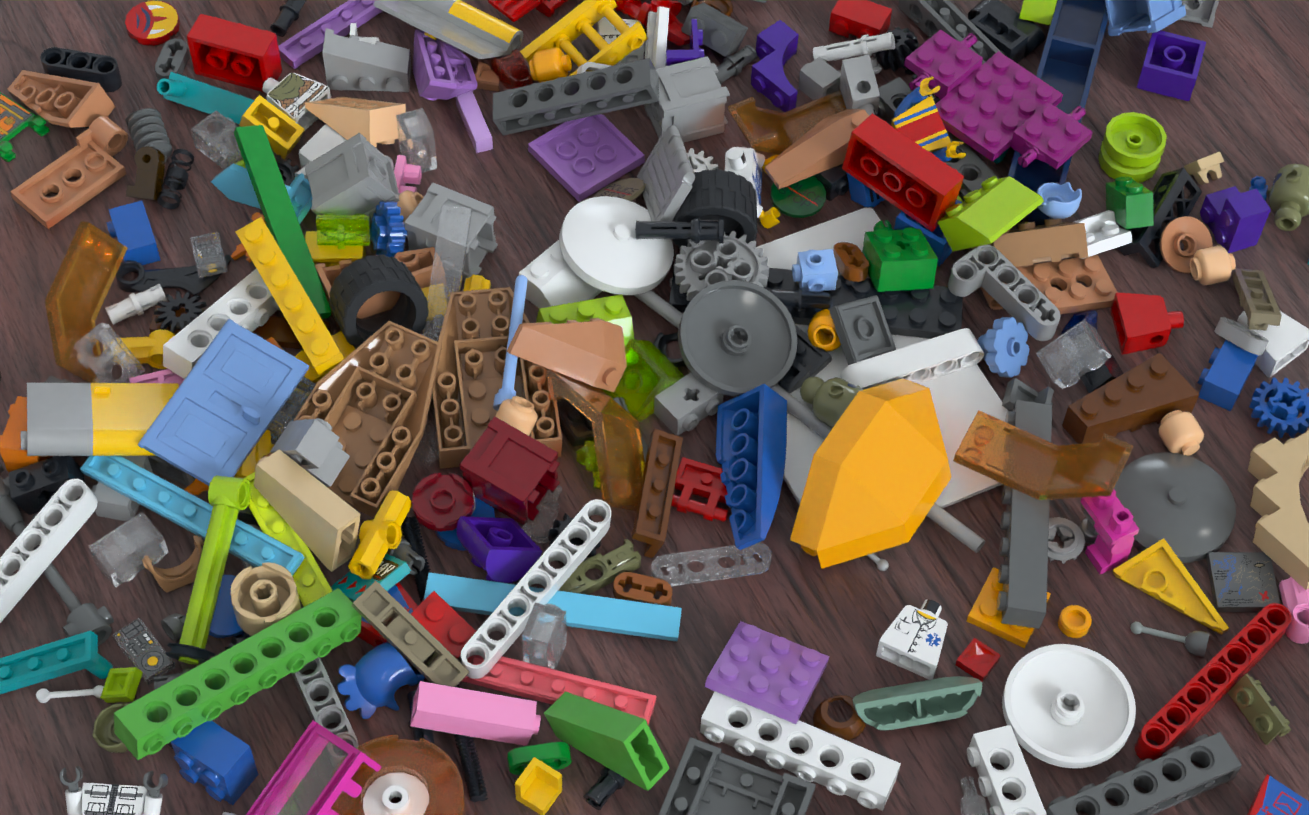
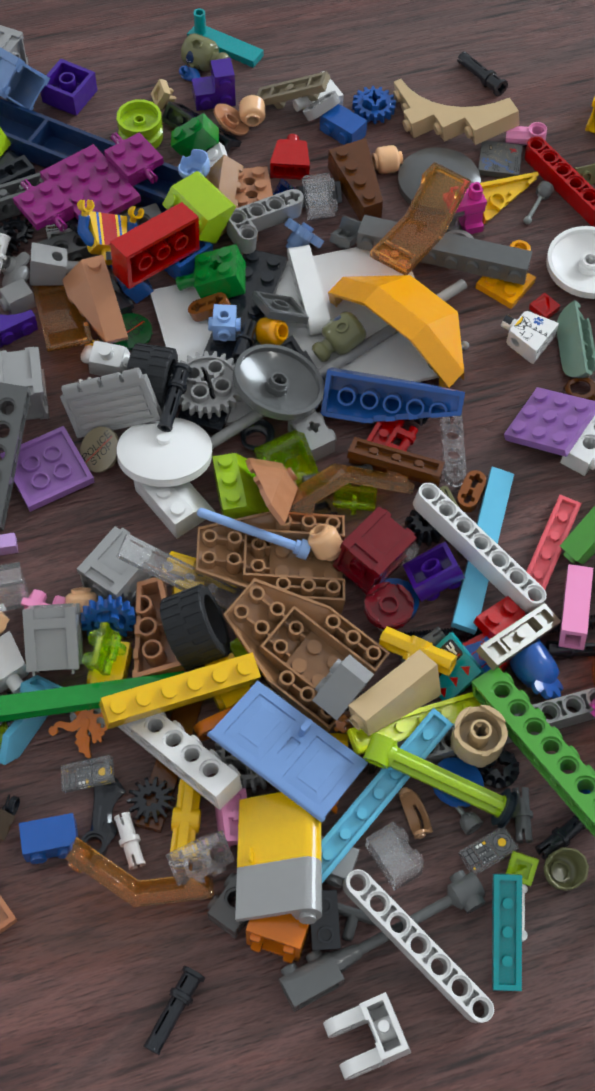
camera: 80 degrees left, 5 degrees up
(545, 636) = (519, 545): clear brick -> none

